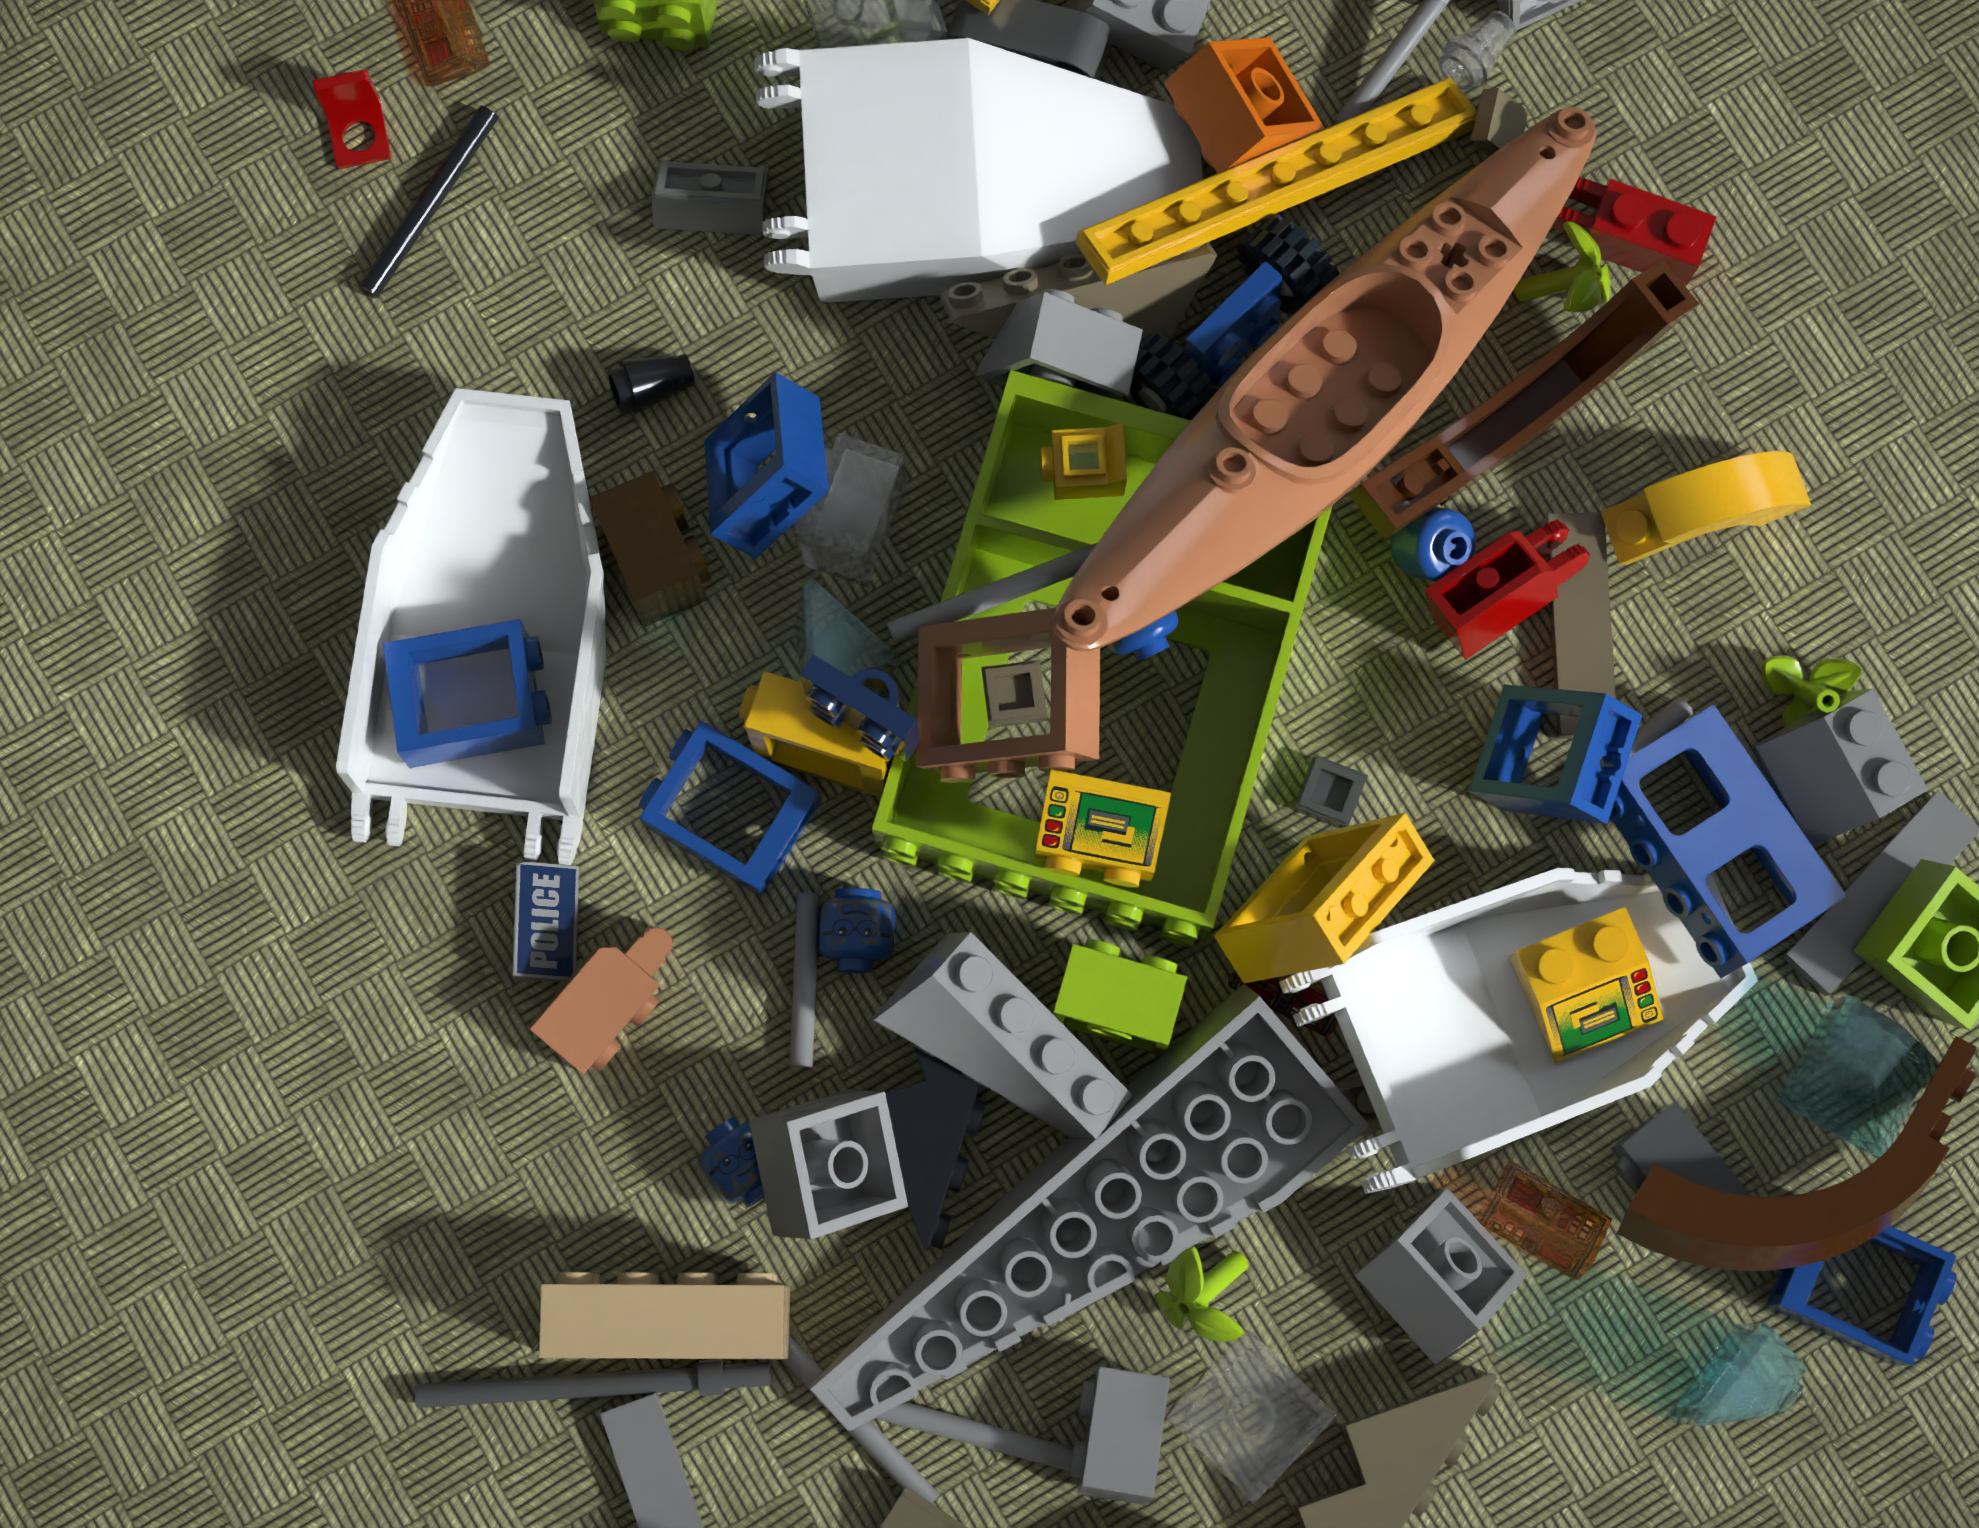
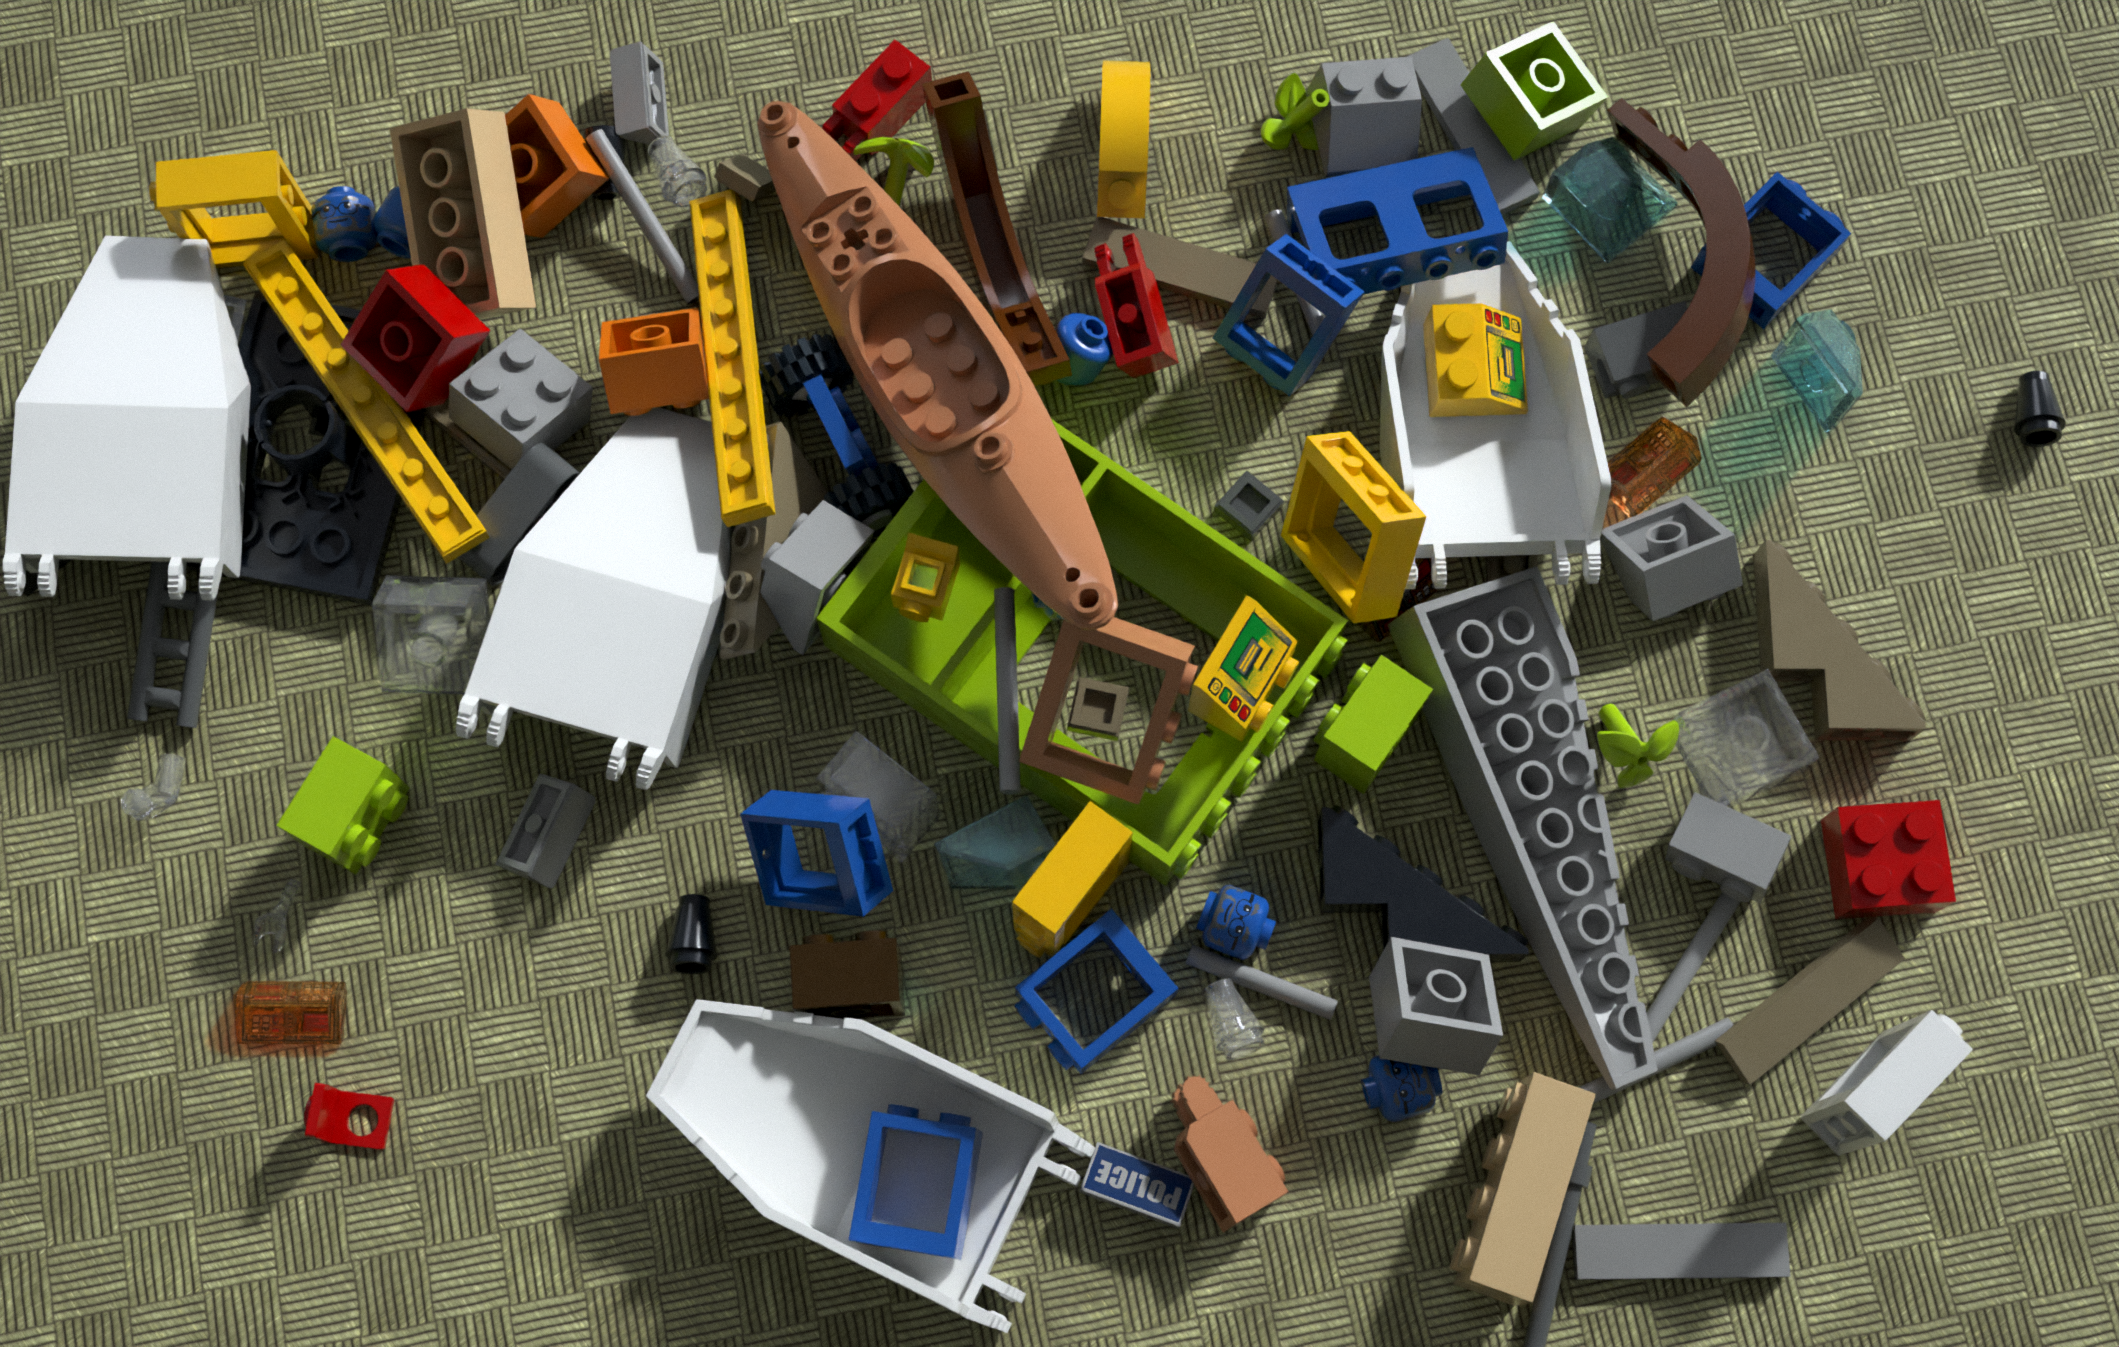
camera: 70 degrees left, 5 degrees down
(428, 202) = (450, 1077): black bar -> none
(749, 962) = (1232, 1021): none -> clear cone
(847, 699) = (1095, 813): dark blue plate -> none
(1002, 1037) = (1373, 826): light grey wedge -> none

